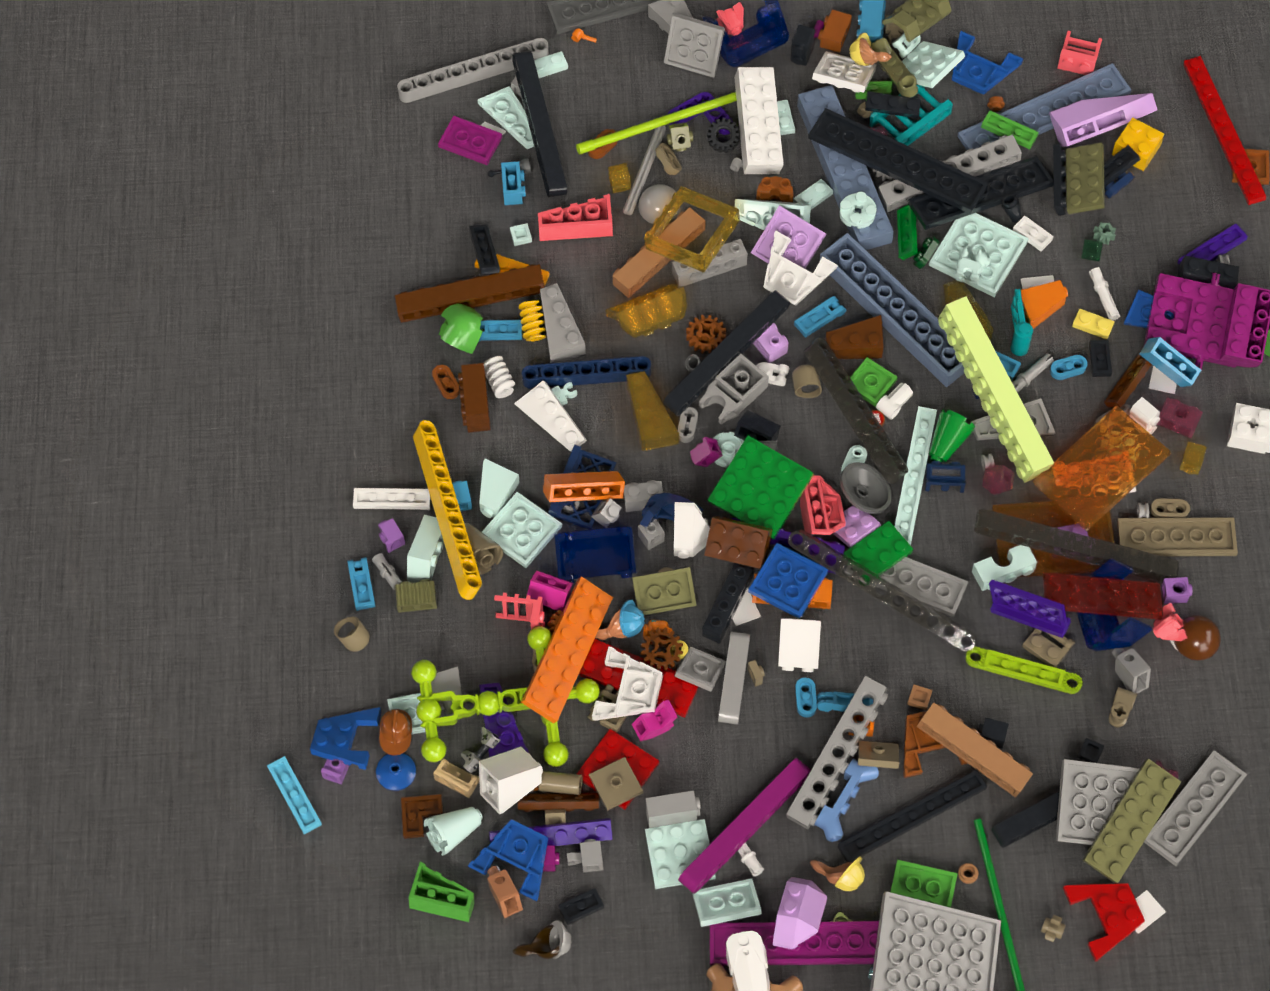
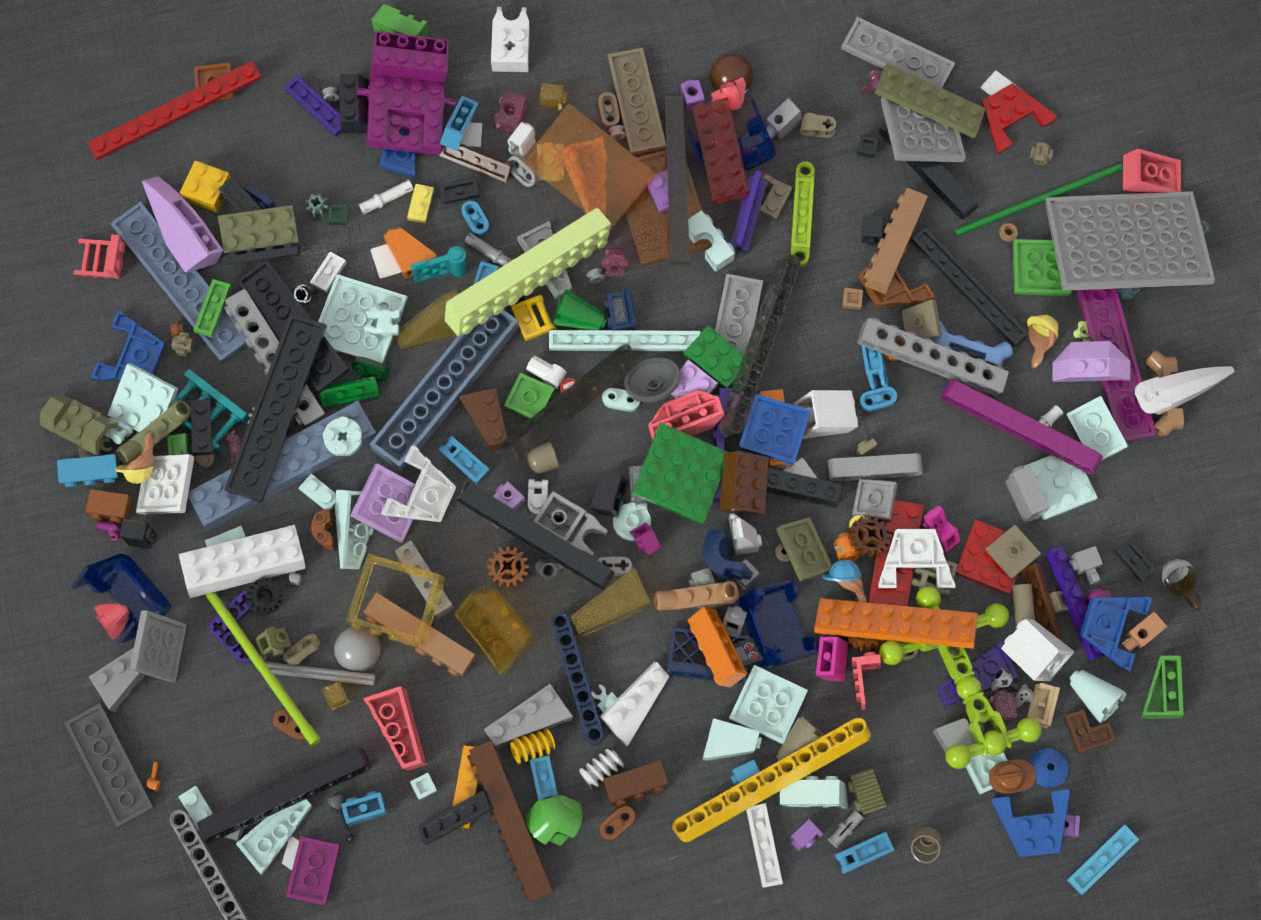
camera: 105 degrees left, 10 degrees up
(464, 737) = (1004, 704): none -> clear pink brick
(575, 515) = (747, 651): none -> black sticker
(636, 479) = (696, 596): none -> medium nougat plate
(952, 394) = (527, 320): none -> yellow plate
(980, 105) = (183, 344): none -> dark tan gear

